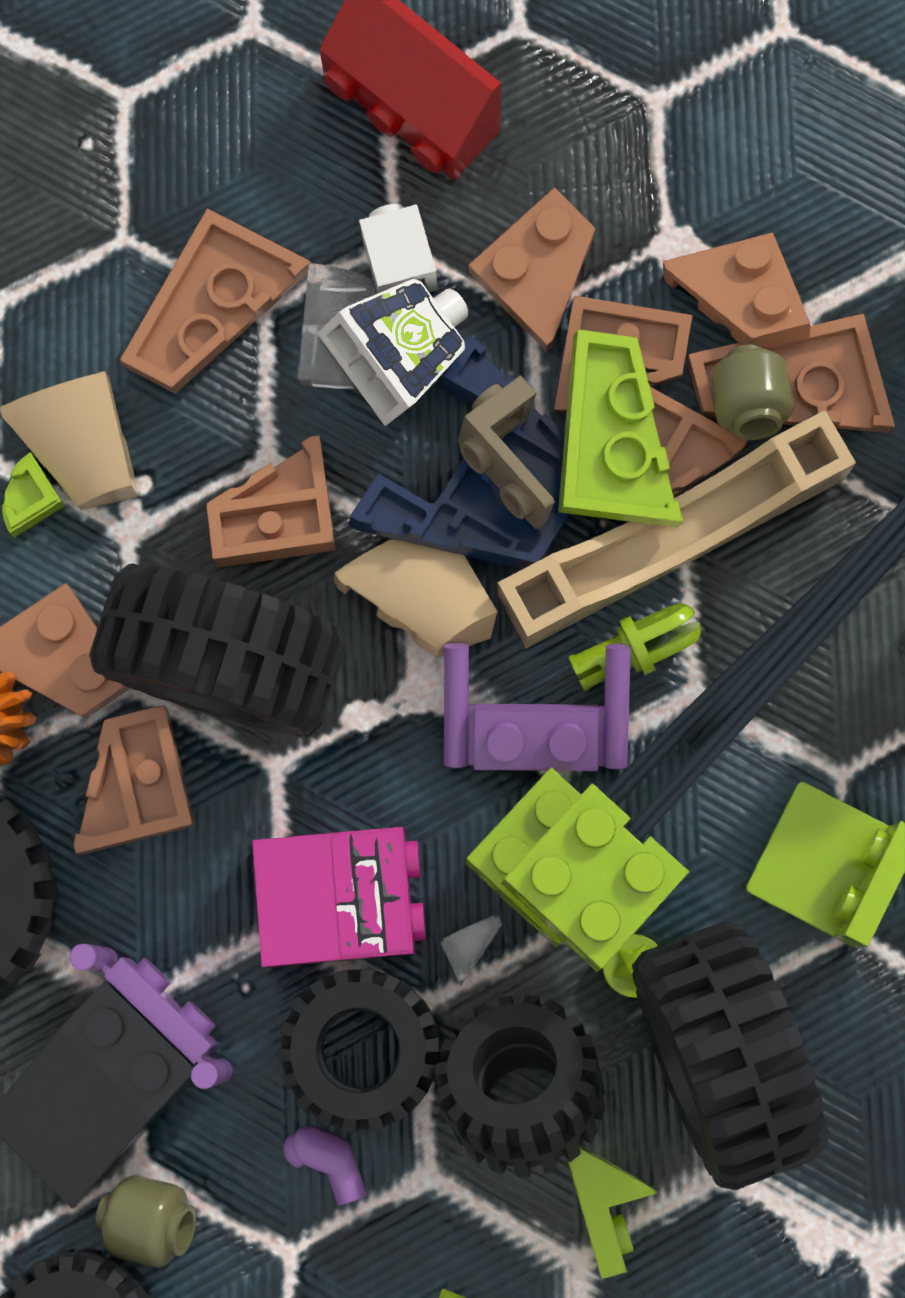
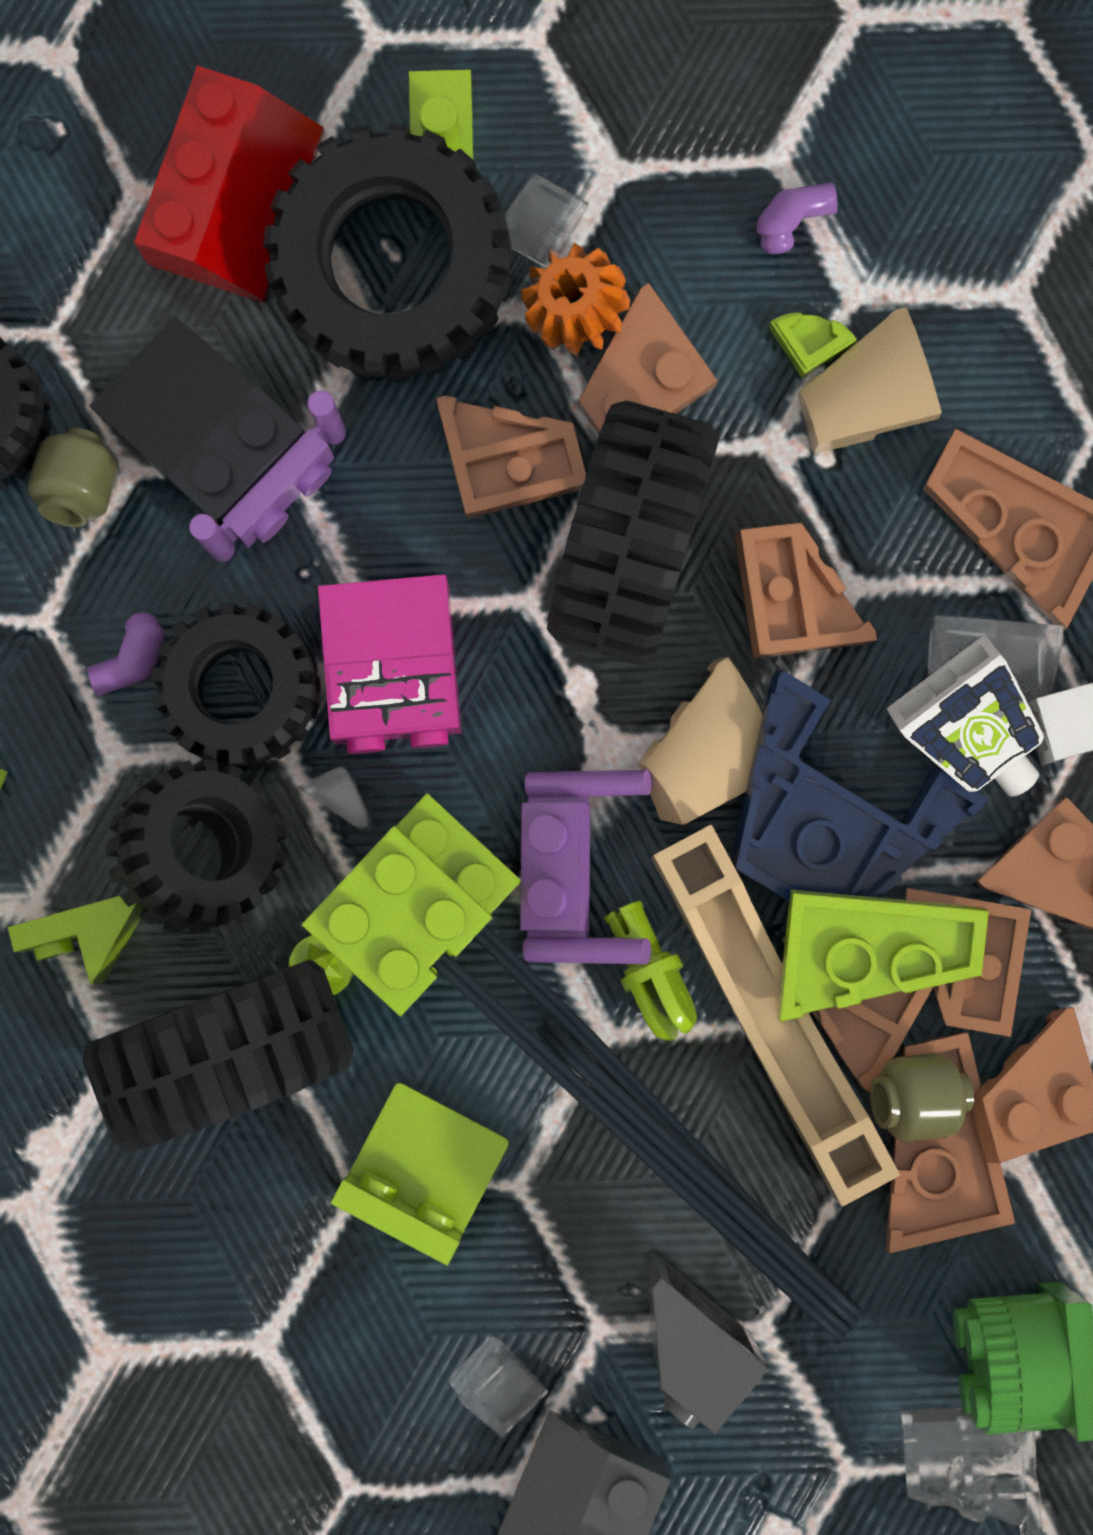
camera: 90 degrees right, 5 degrees up
(492, 418) = (893, 822): dark tan bracket -> none

